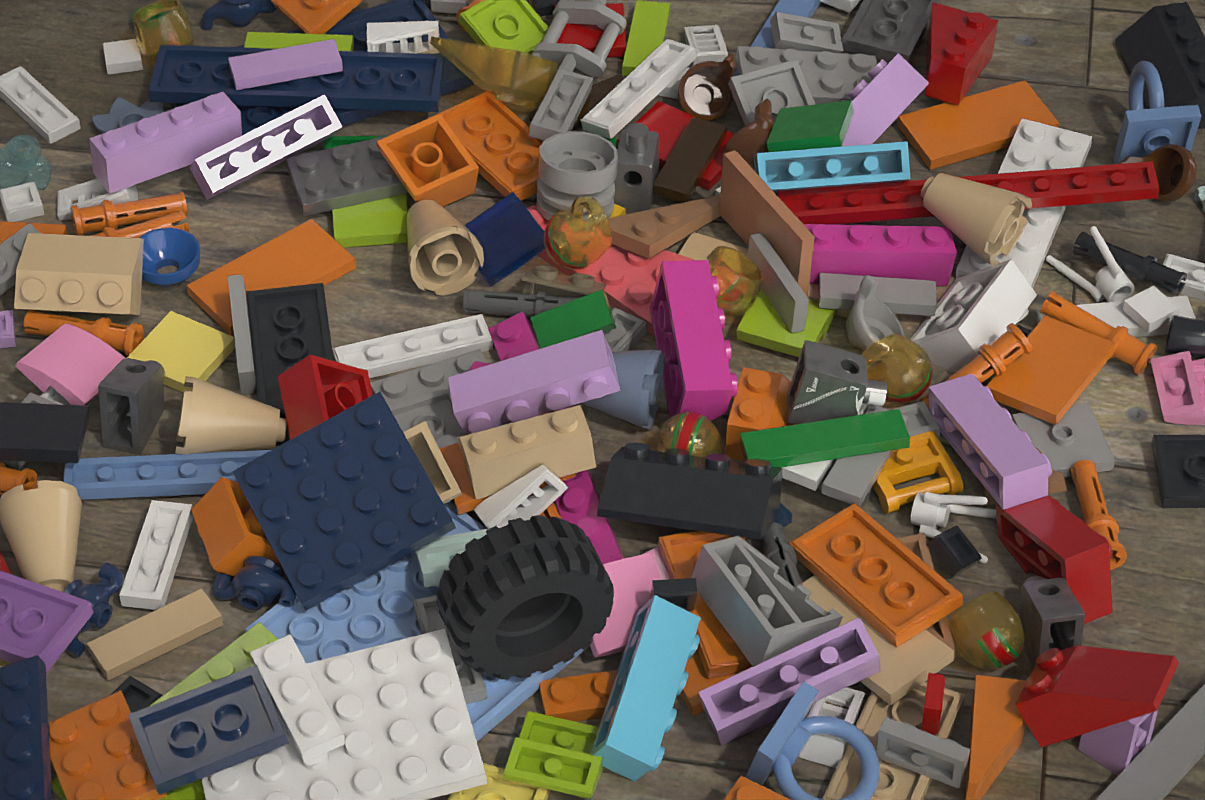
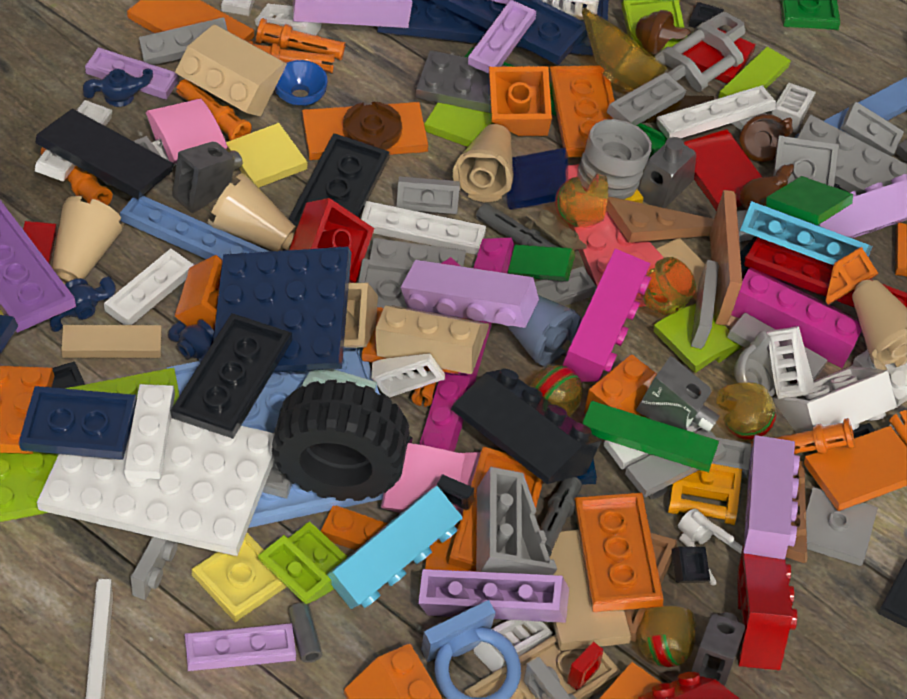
camera: 25 degrees right, 5 degrees up
(242, 334) = (308, 160): light grey tile -> none
(265, 147) = (418, 35): brick -> none
(280, 263) = (373, 124): none -> reddish brown tile
(346, 592) = (231, 375): none -> black tile
(364, 106) = (502, 36): none -> lavender plate
(397, 309) = (428, 195): none -> light grey tile
(518, 28) = (657, 30): none -> reddish brown hat
(689, 160) = (710, 184): dark brown tile -> none
(905, 182) = (849, 273): none -> orange tile
(924, 326) = (779, 364): none -> white slope
(1095, 510) = (814, 604): orange pin -> none

